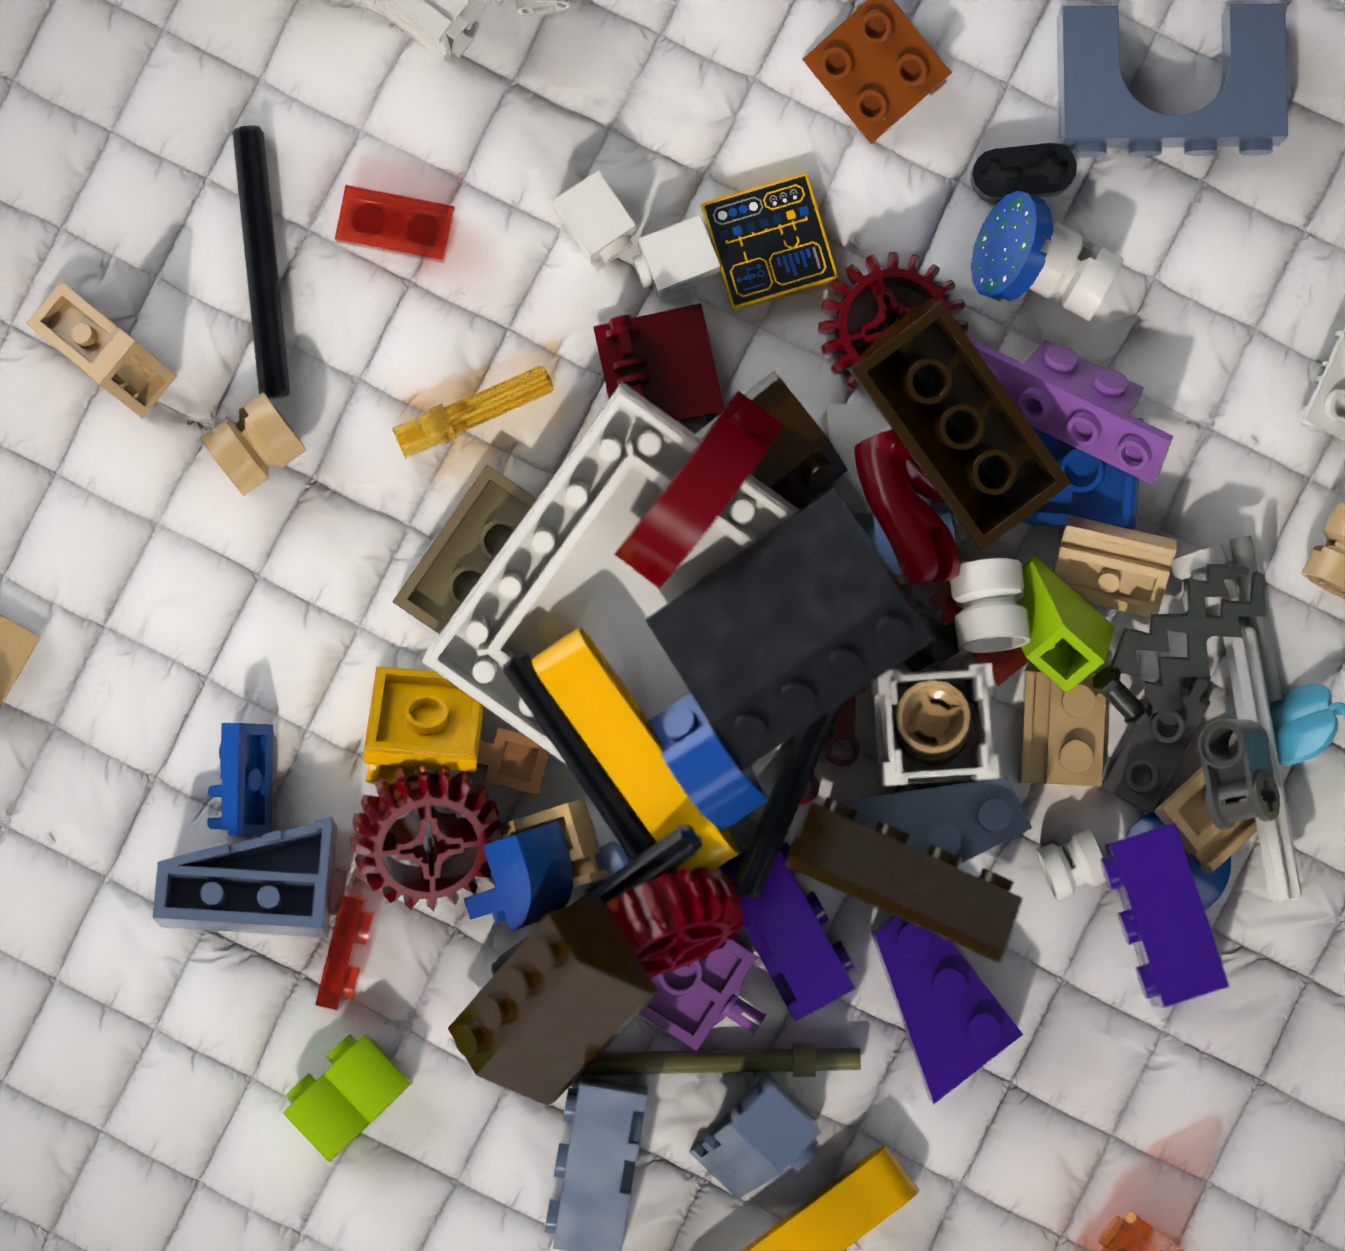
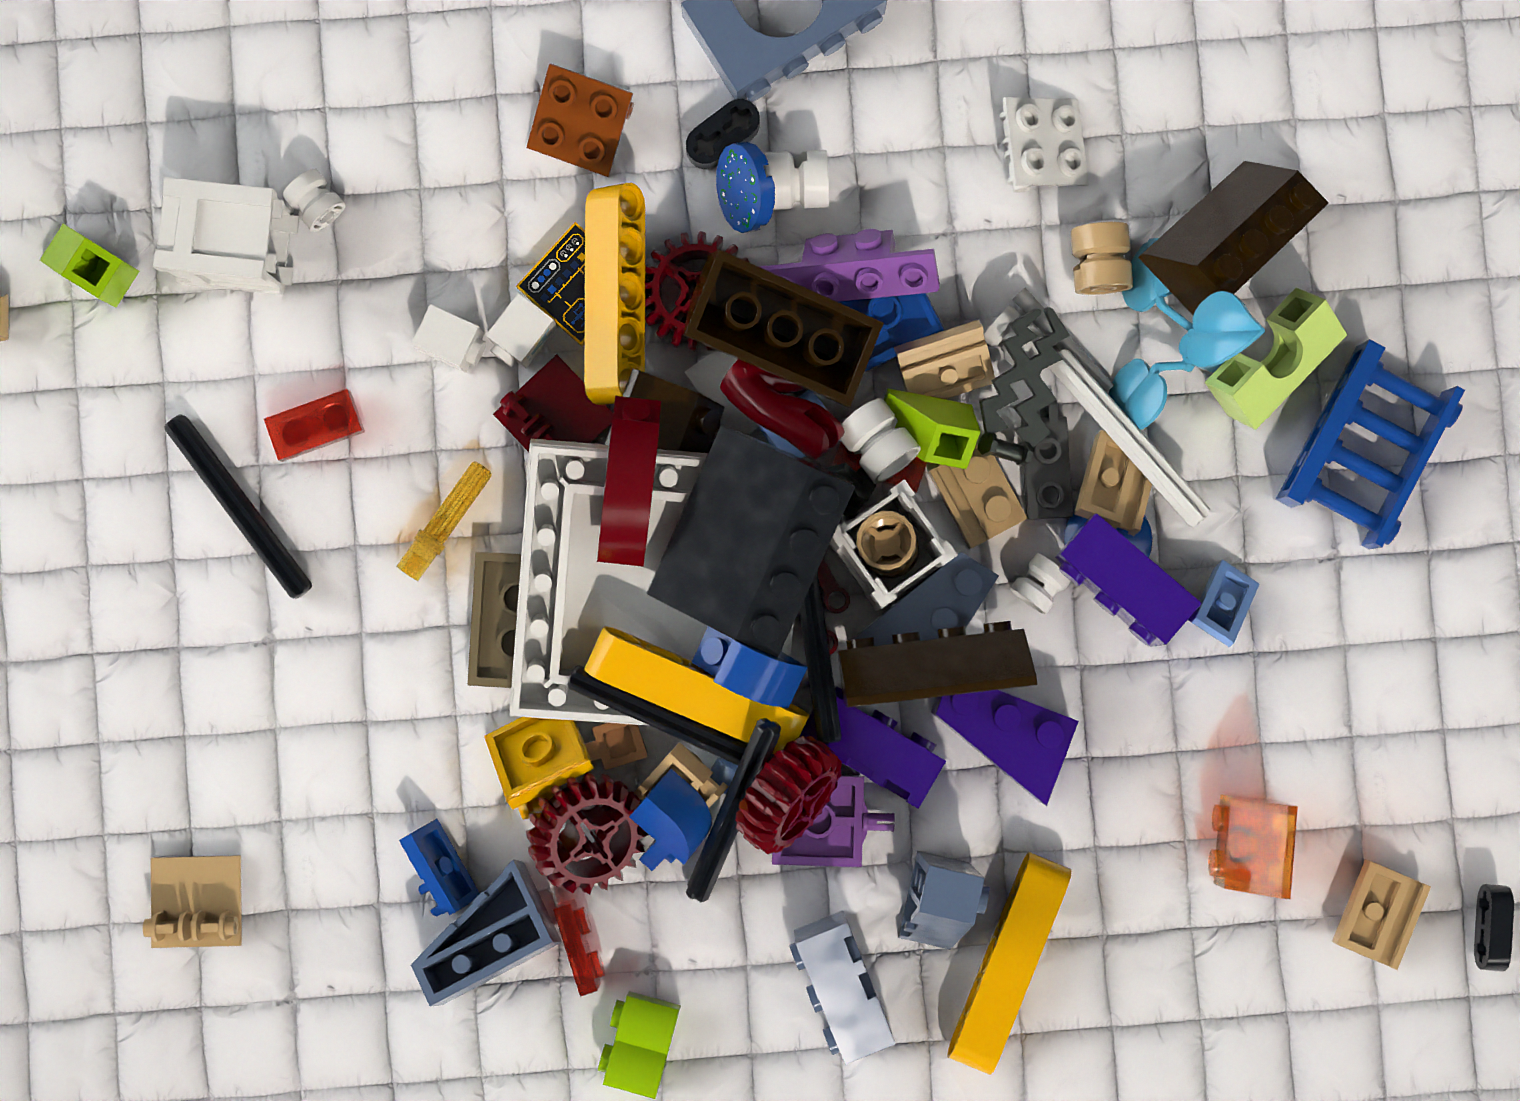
camera: 30 degrees left, 0 degrees up
(101, 349) = (163, 633): tan bracket -> none
(253, 444) = (306, 634): tan wheel -> none
(554, 1003) = (744, 897): dark brown slope -> none
(802, 1060) = (937, 828): olive bar -> none
(804, 273) = (614, 290): none -> yellow beam
(1238, 776) = (1119, 455): dark grey piece -> none
(1257, 1004) = (1224, 603): none -> light blue slope

